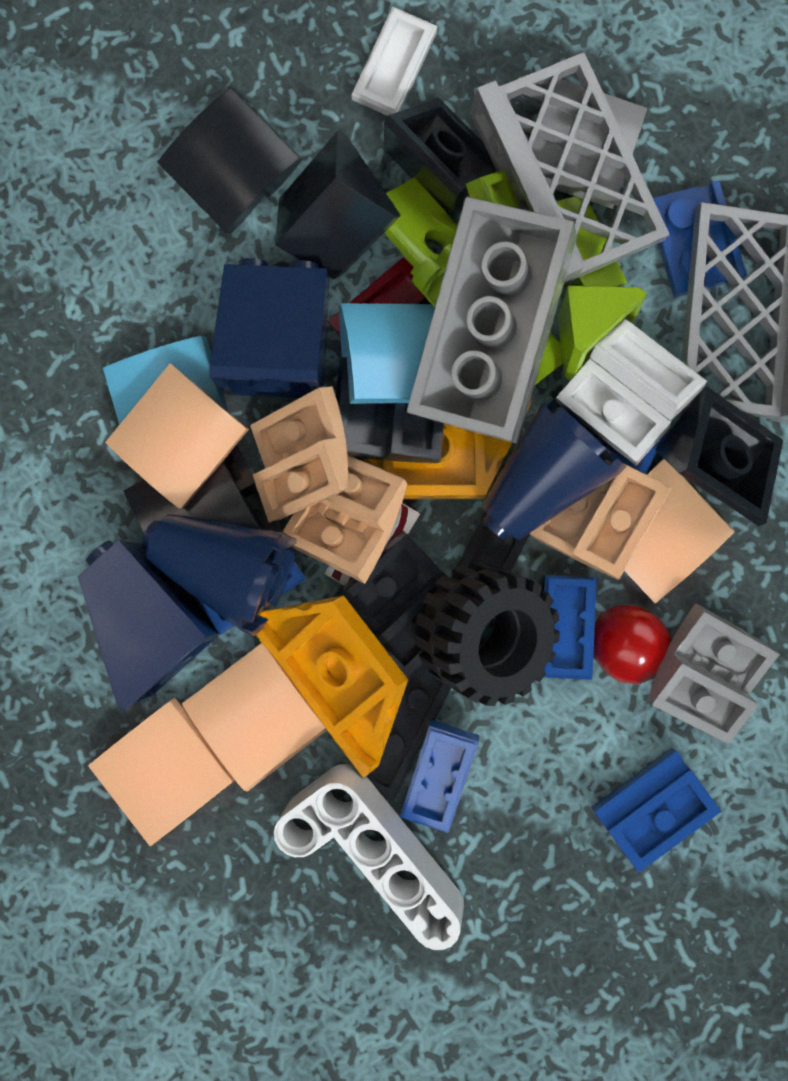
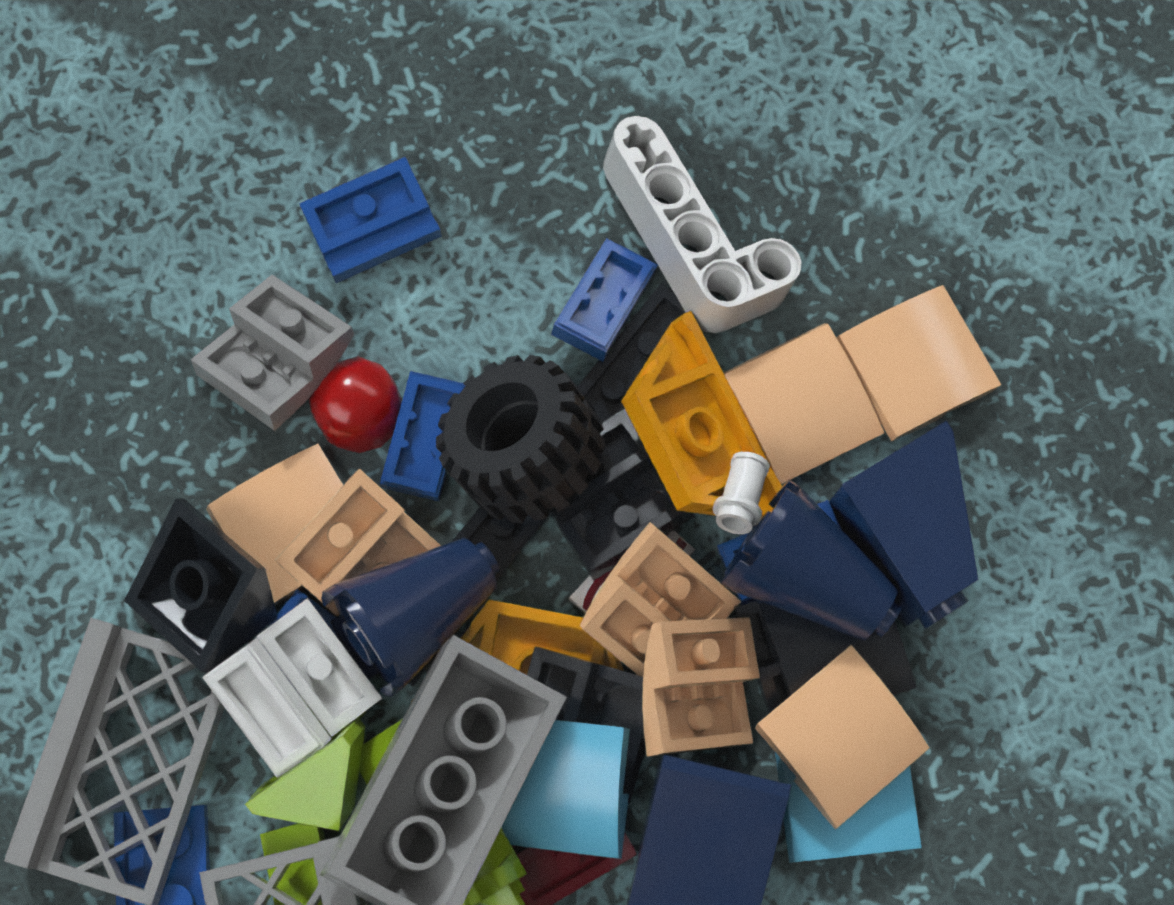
camera: 170 degrees left, 10 degrees down
(291, 619) = (738, 507): none -> white pin

